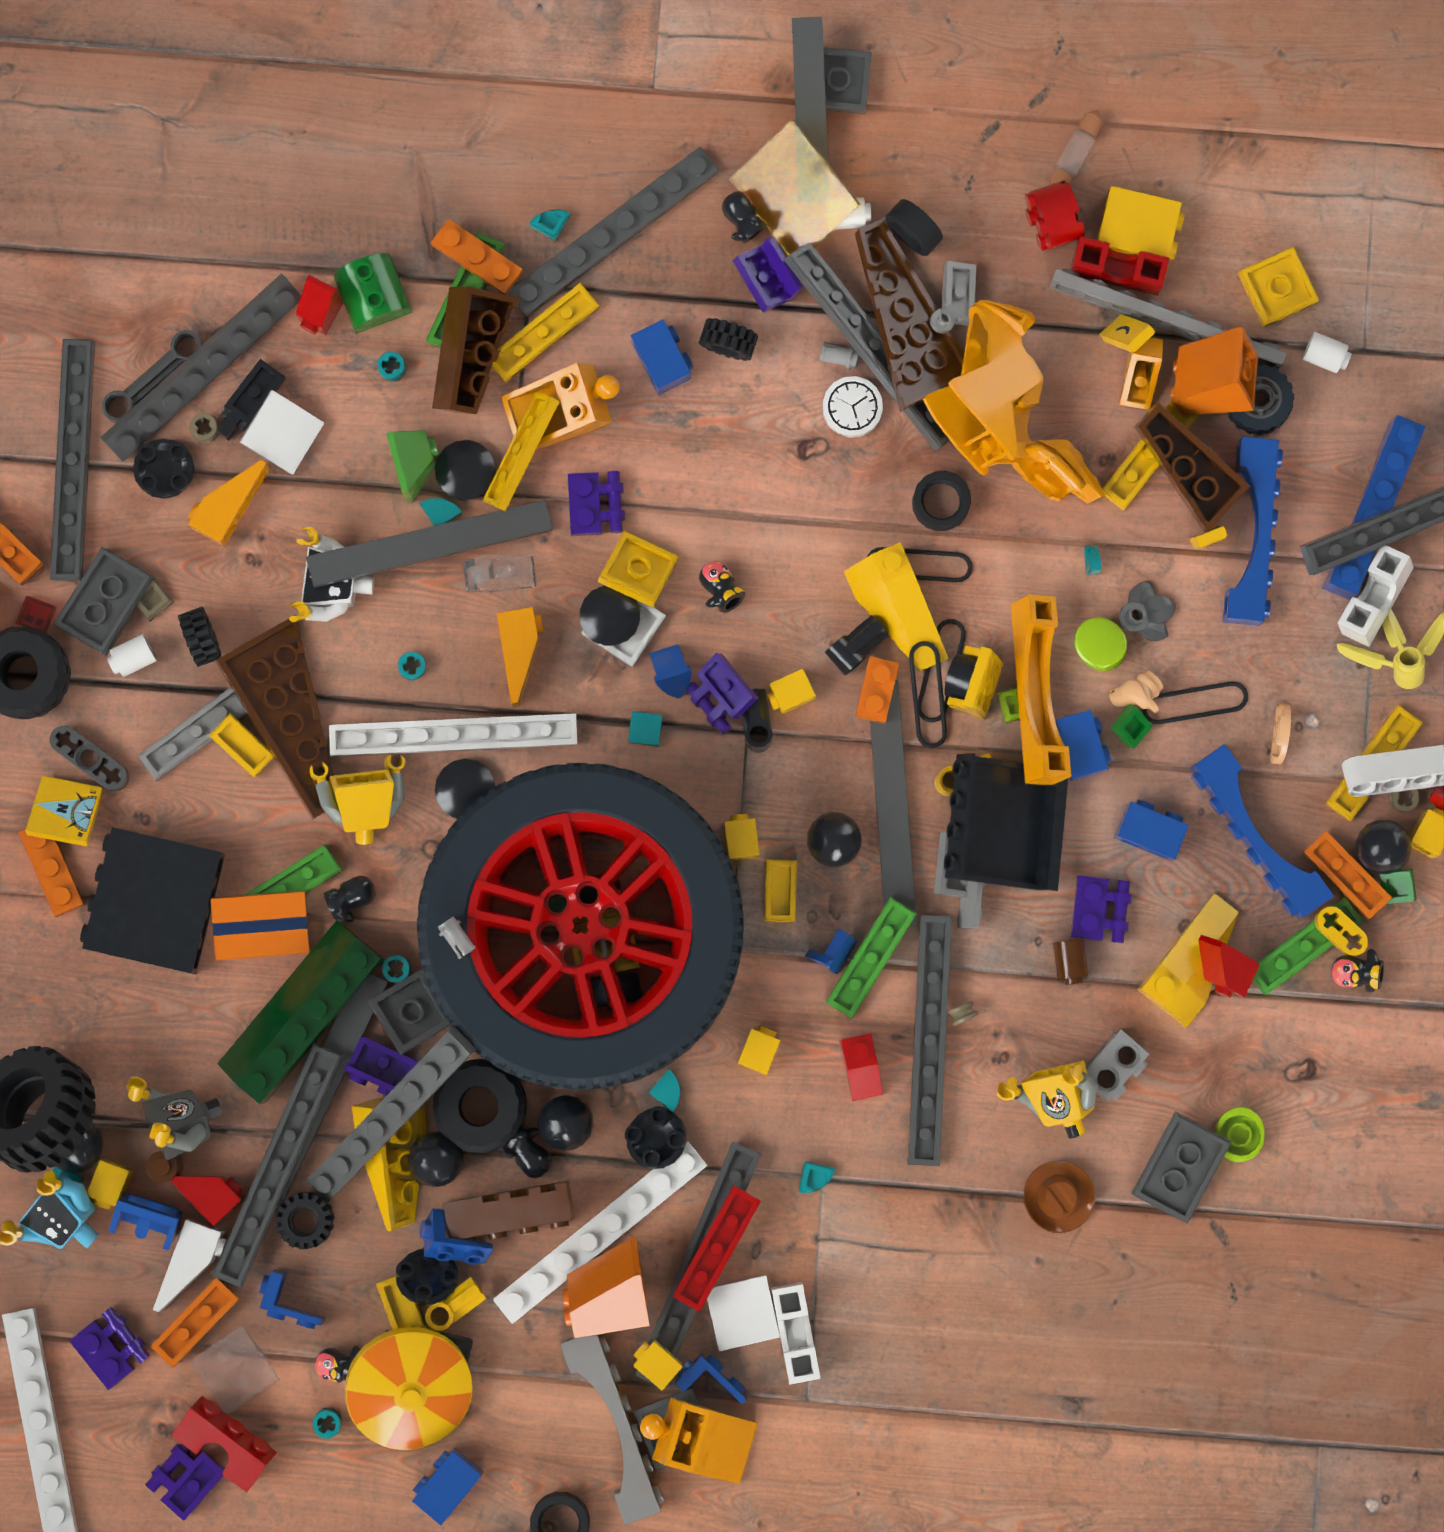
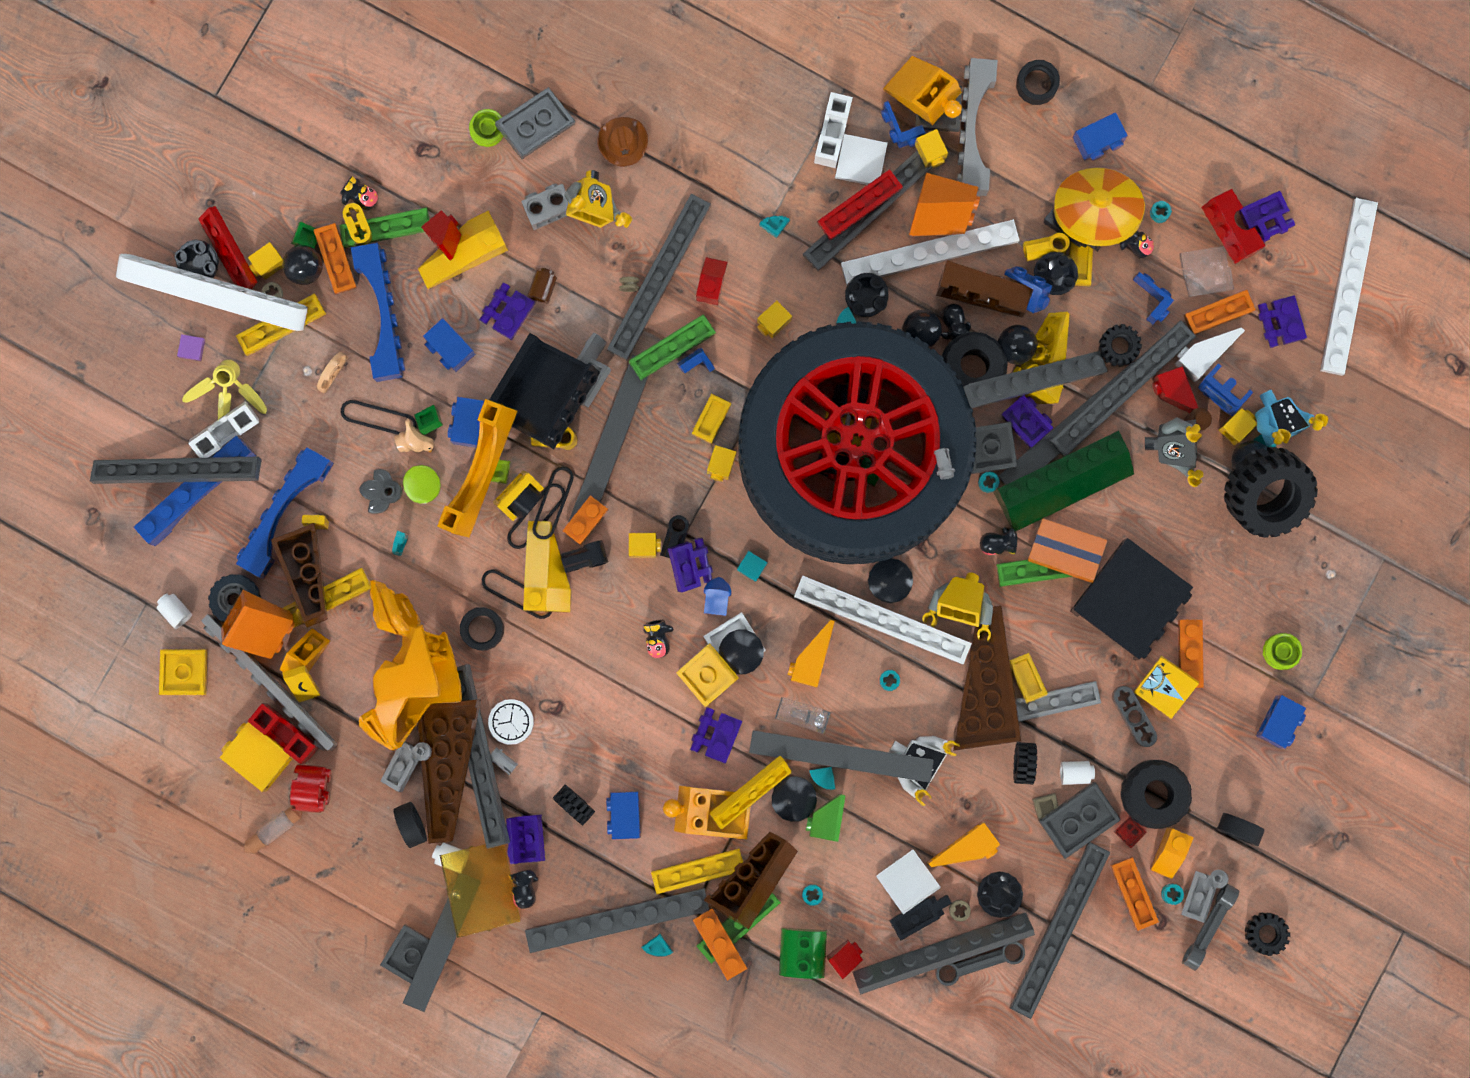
camera: 155 degrees left, 0 degrees up
(834, 839) = (660, 433): black piece -> none

